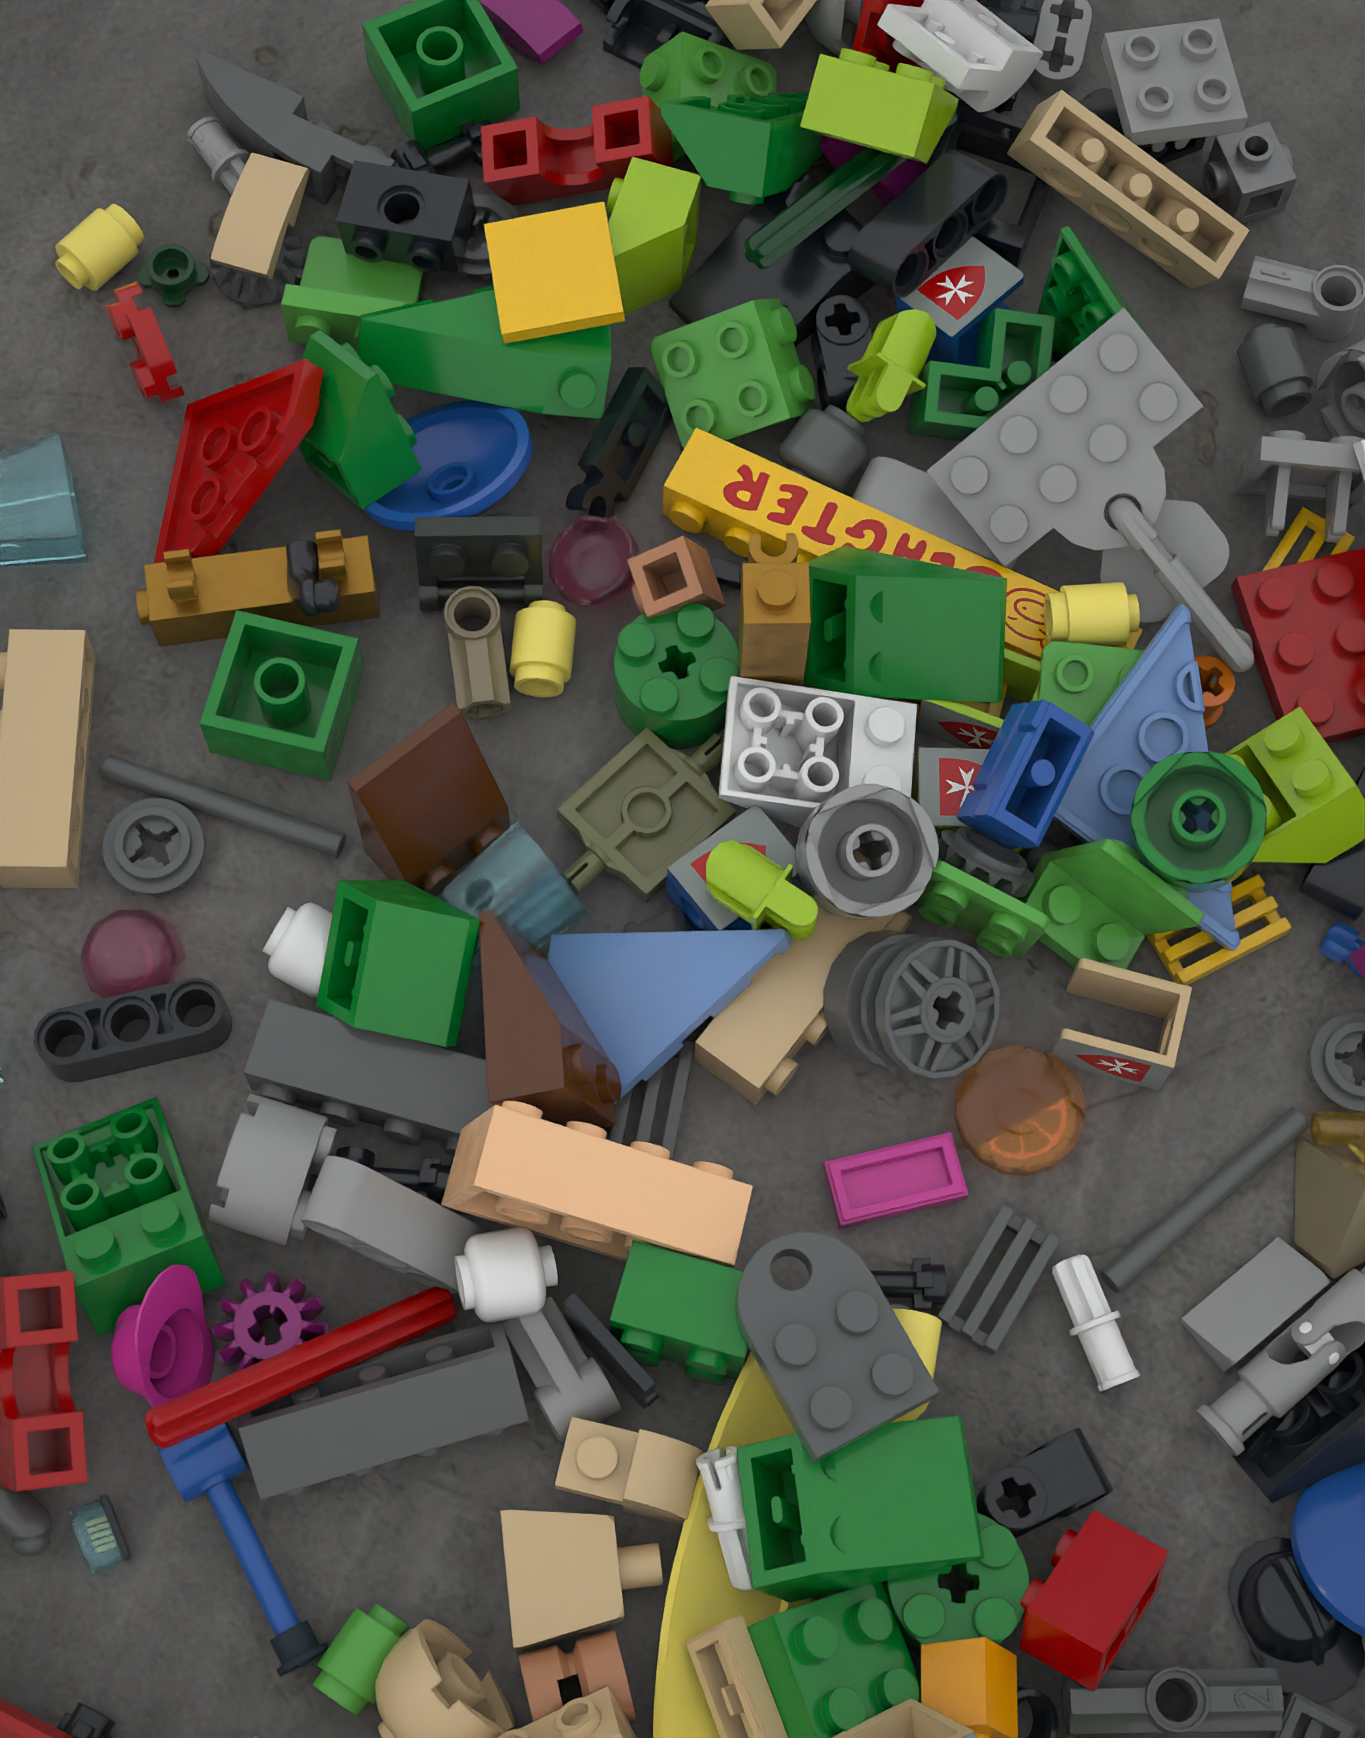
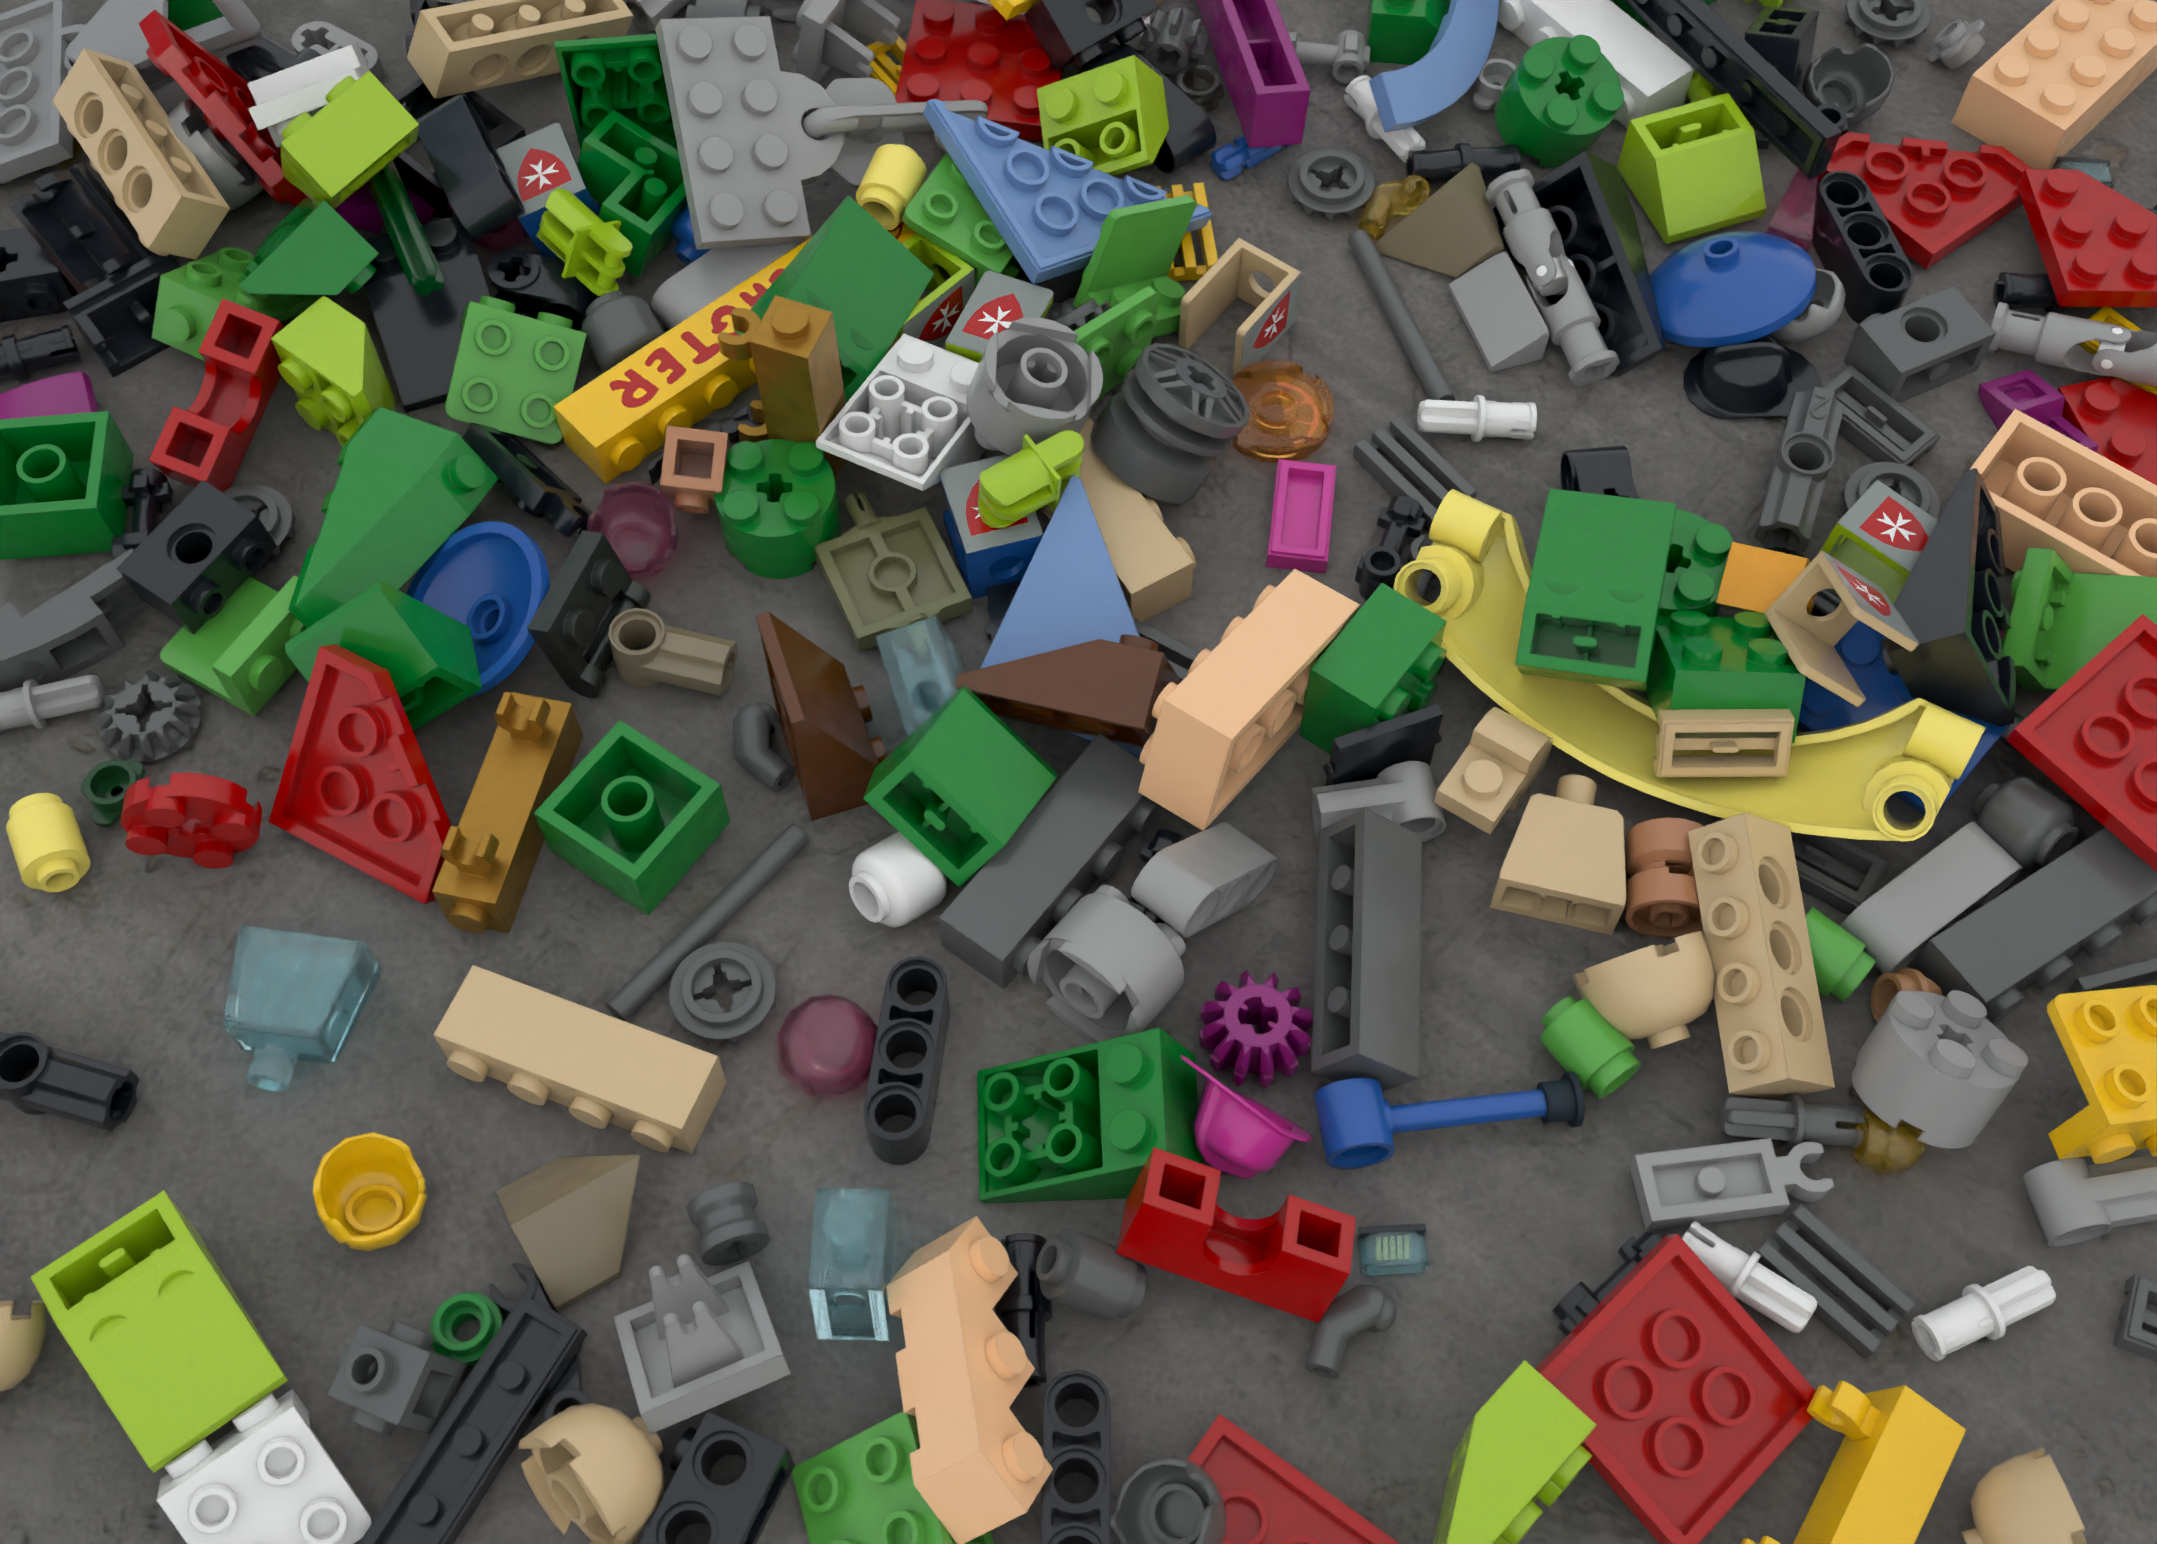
camera: 65 degrees left, 10 degrees down
(258, 215) = (114, 680): tan slope -> none
(298, 1367) = (1315, 996): red axle -> none
(303, 580) = (543, 748): black arm -> none
(504, 1274) = (1285, 805): white head -> none
(542, 649) = (694, 601): light yellow brick -> none
(554, 272) = (351, 429): yellow tile -> none
(725, 1499) = (1564, 701): white axle -> none
(831, 1345) = (1458, 551): dark grey plate -> none
(1025, 774) = (1019, 256): blue brick -> none
(1091, 1598) = (1712, 477): red brick -> none
(1192, 784) = (1117, 153): green brick -> none

